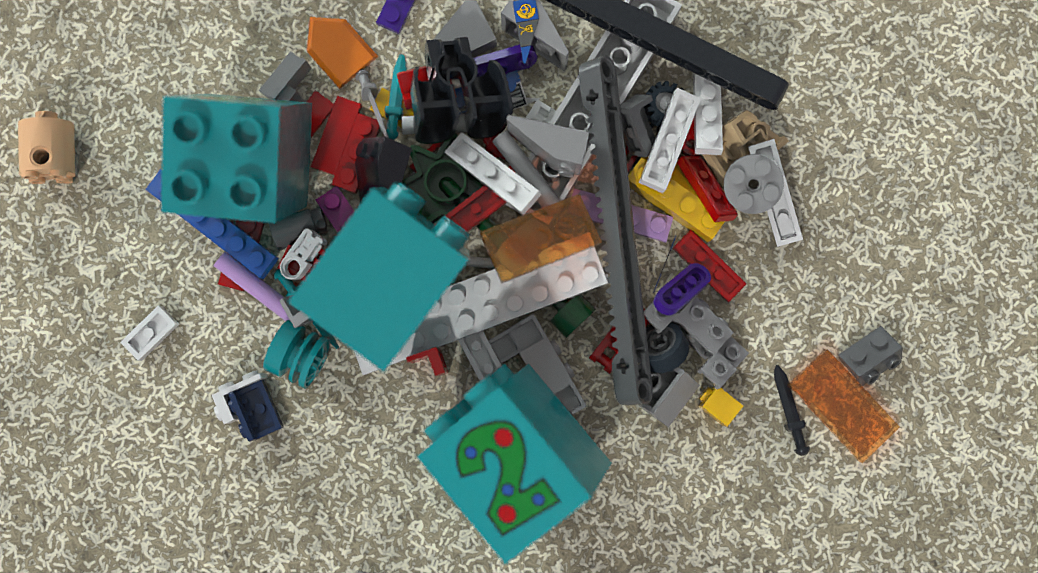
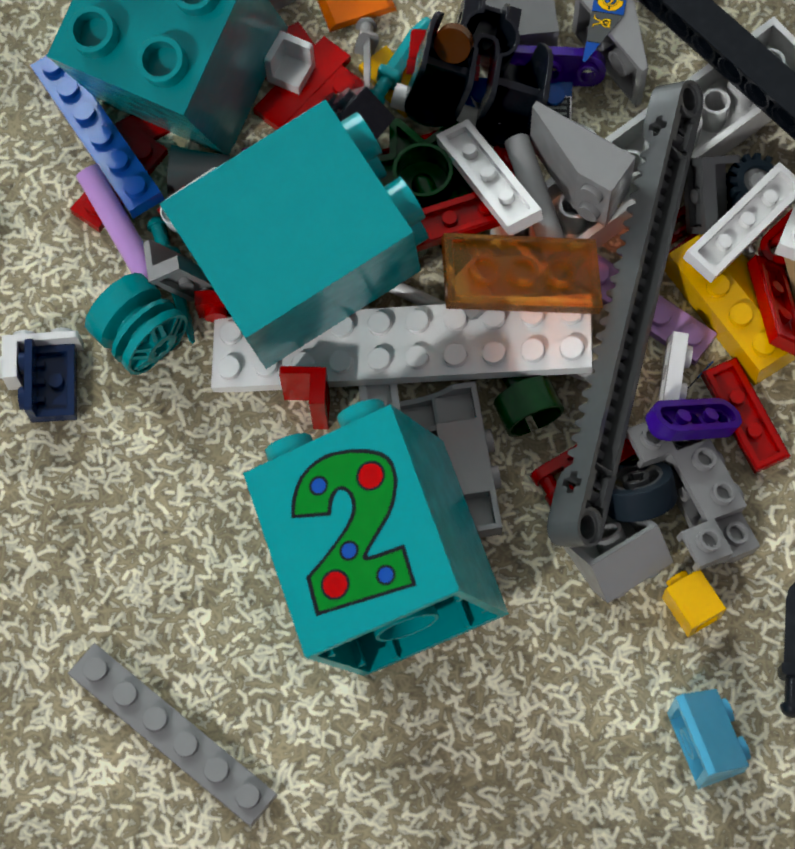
camera: 20 degrees right, 15 degrees down
(323, 127) = (289, 62): none -> white panel
(434, 88) = (453, 43): none -> reddish brown tile
(659, 269) = (676, 358): none -> white plate
(760, 491) = (708, 737): none -> medium azure slope

